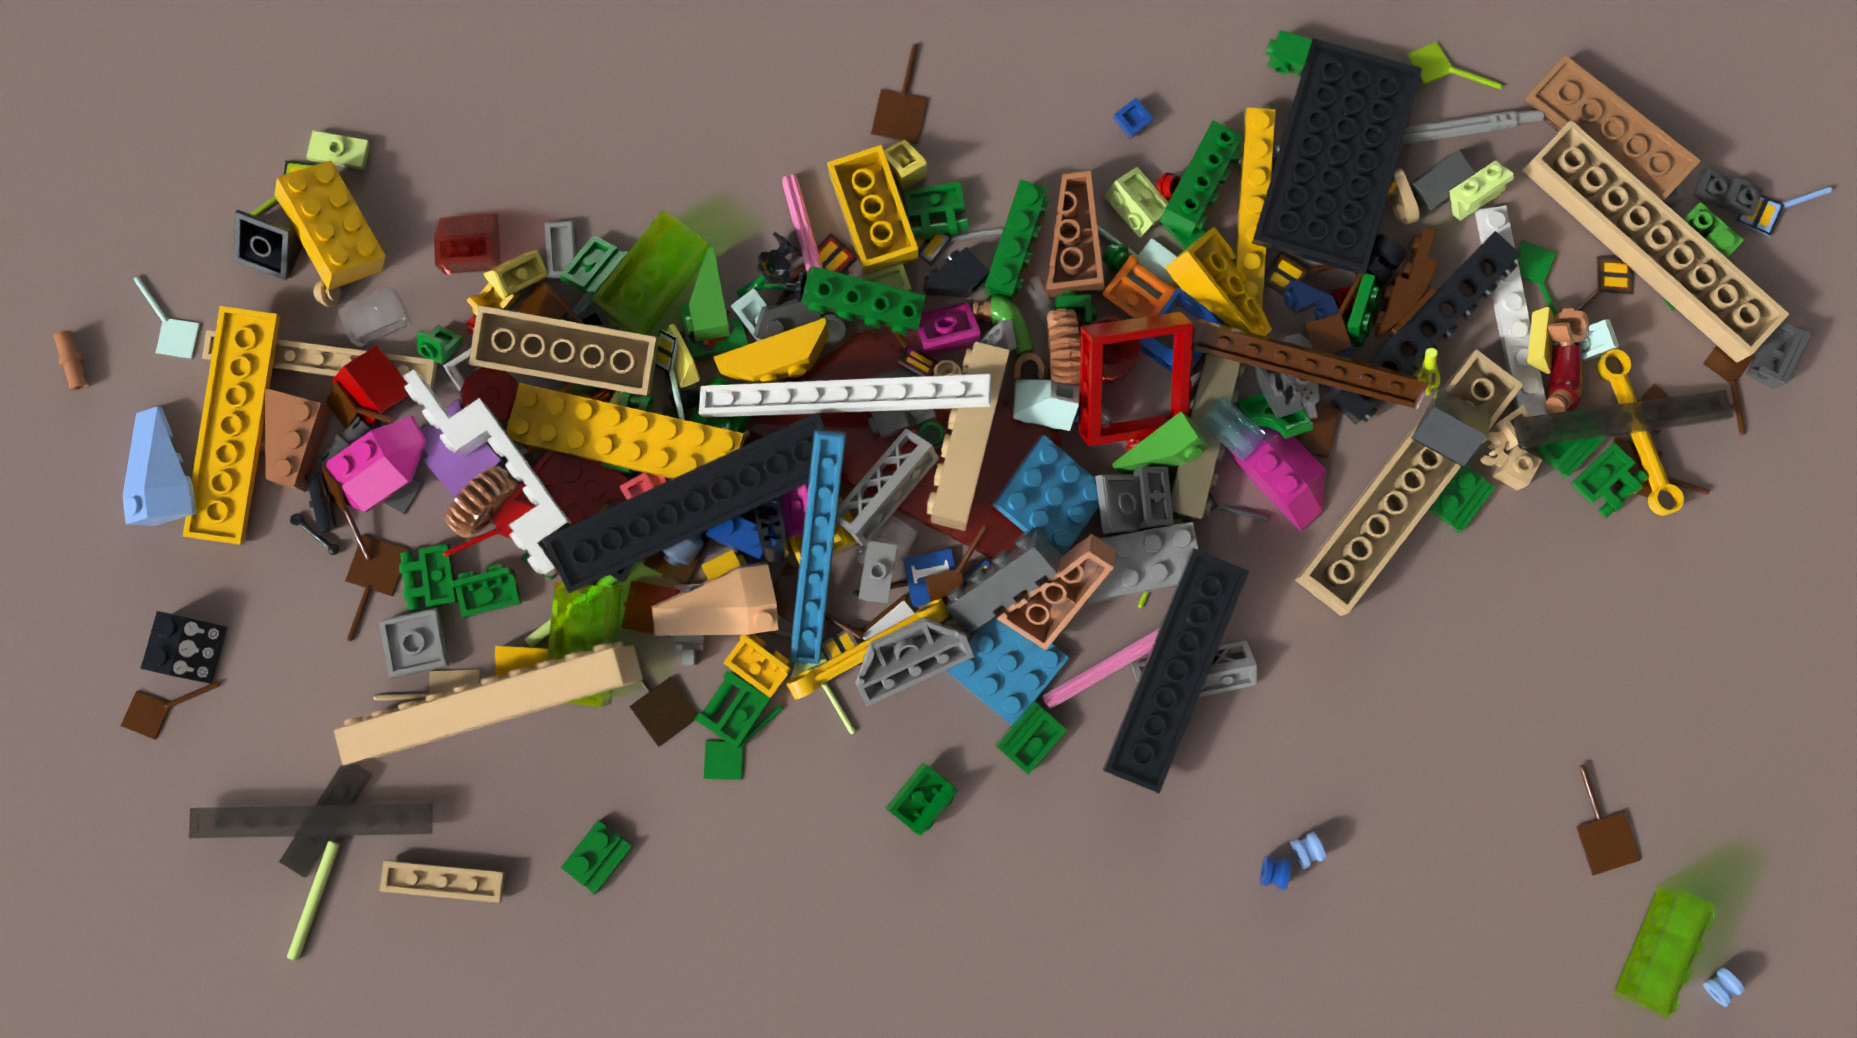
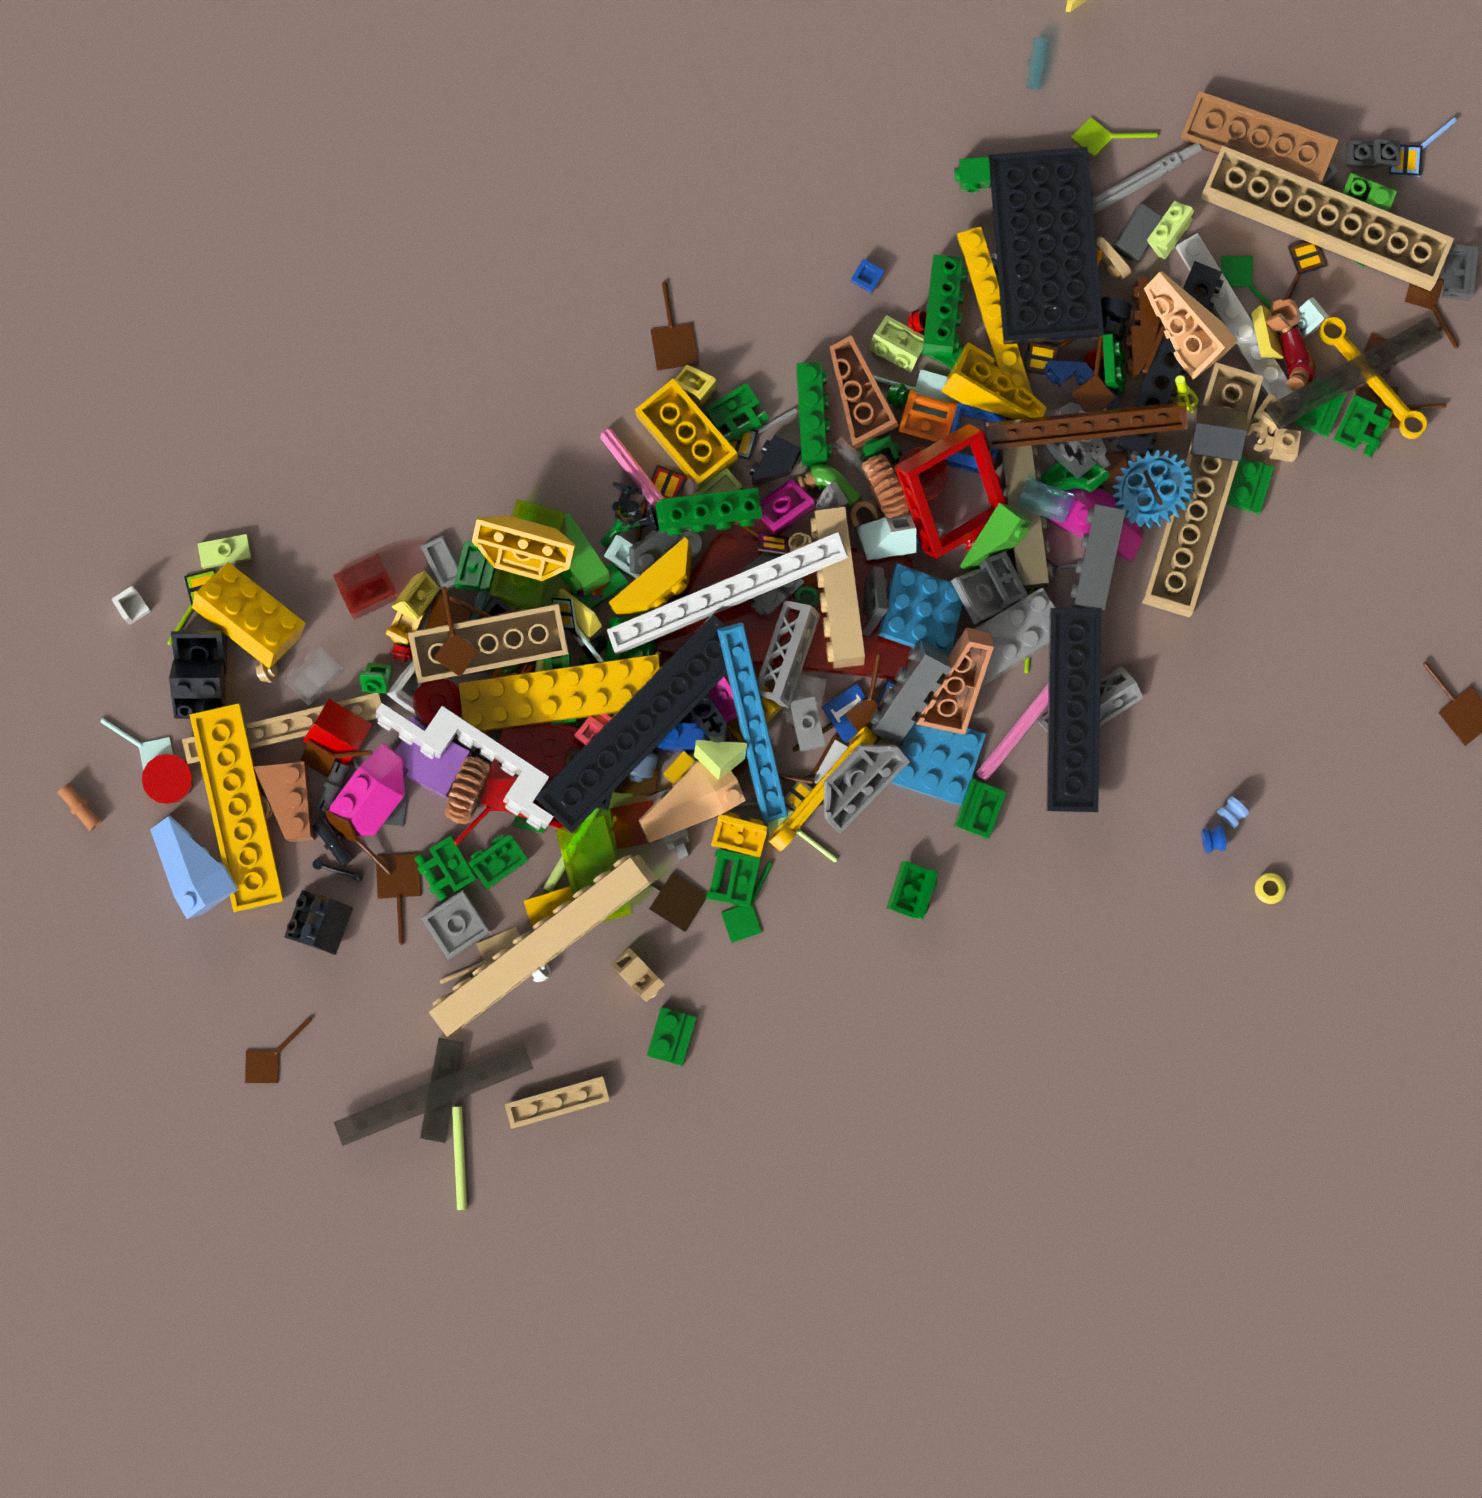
camera: 15 degrees left, 0 degrees up
(175, 366) = (167, 779): none -> red tile
(183, 647) = (273, 999): black slope -> none
(214, 168) = (131, 605): none -> white panel
(246, 279) = (196, 686): none -> black slope
(268, 583) = (318, 922): none -> black slope
(488, 734) = (542, 974): none -> white hinge
(522, 345) = (455, 651): none -> reddish brown piece
(585, 776) = (637, 975): none -> tan brick
(644, 260) = (523, 546): none -> yellow wedge
(766, 571) = (719, 757): none -> yellowish green slope
(1004, 465) = (875, 599): none -> dark grey wing
(1268, 511) = (1099, 556): none -> dark grey wedge
(1305, 945) = (1280, 885): none -> light yellow piece
(1385, 457) = (1175, 478): none -> dark azure gear
(1464, 300) = (1193, 330): none -> light nougat wedge

